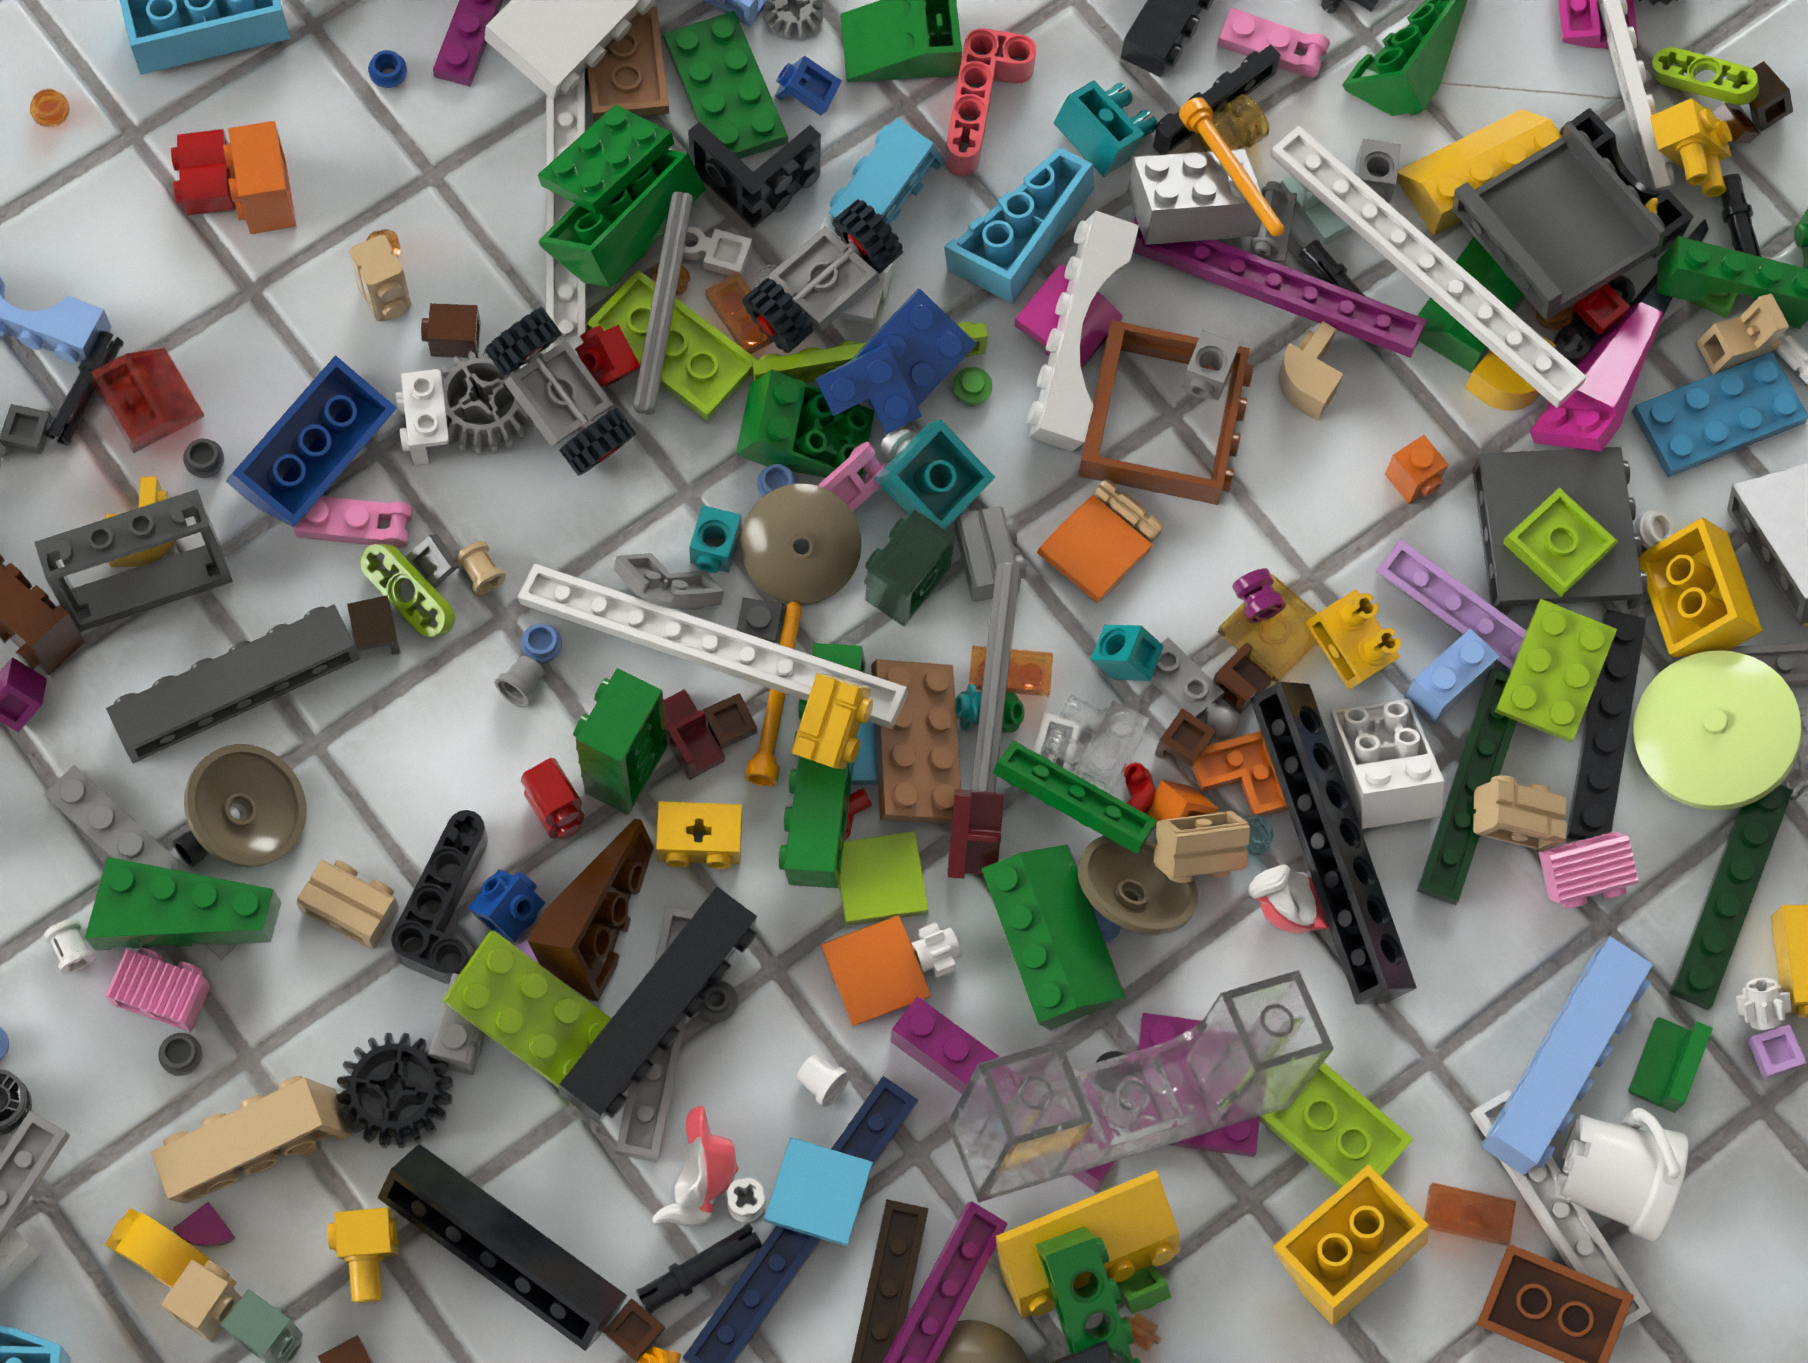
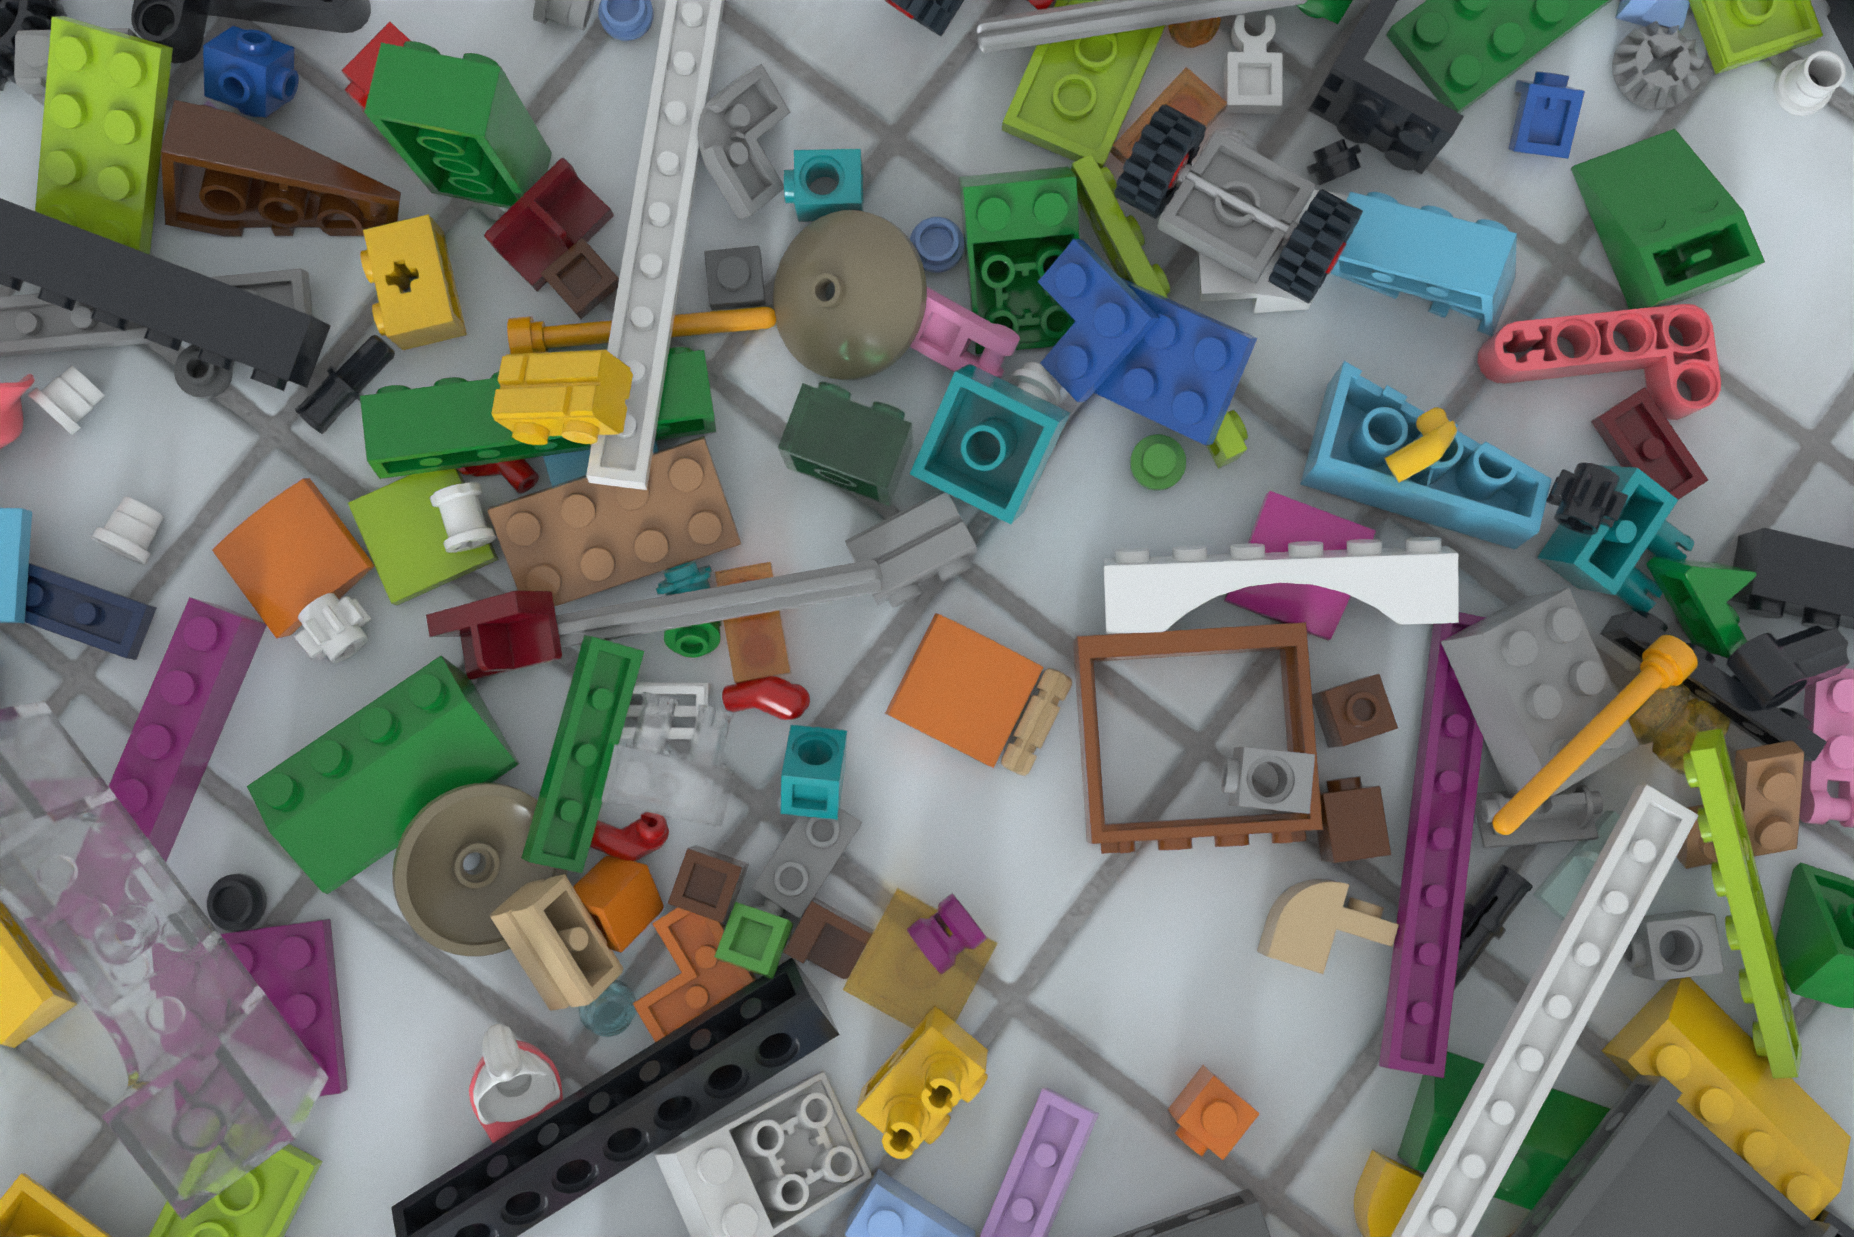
camera: 80 degrees right, 15 degrees up
(711, 1095) = (68, 398): none -> white piece
(757, 901) = (345, 384): none -> black axle
(799, 219) = (1334, 161): none -> black plate
(884, 835) = (462, 517): none -> white bush
(1021, 209) = (1426, 450): none -> yellow arm
(1046, 90) = (1646, 440): none -> dark red plate
(1064, 672) = (769, 695): none -> red arm
(1080, 128) = (1587, 498): none -> black gear
(1158, 89) = (1699, 600): none -> green slope
(1176, 308) = (1354, 711): none -> reddish brown brick
(1216, 52) = (1783, 667): none -> black piece
(1232, 717) = (754, 940): none -> bright green plate
(1251, 330) = (1352, 822): none -> reddish brown brick
(1304, 94) = (1770, 799): none -> medium nougat plate
(1343, 120) = (1749, 922): none -> lime plate

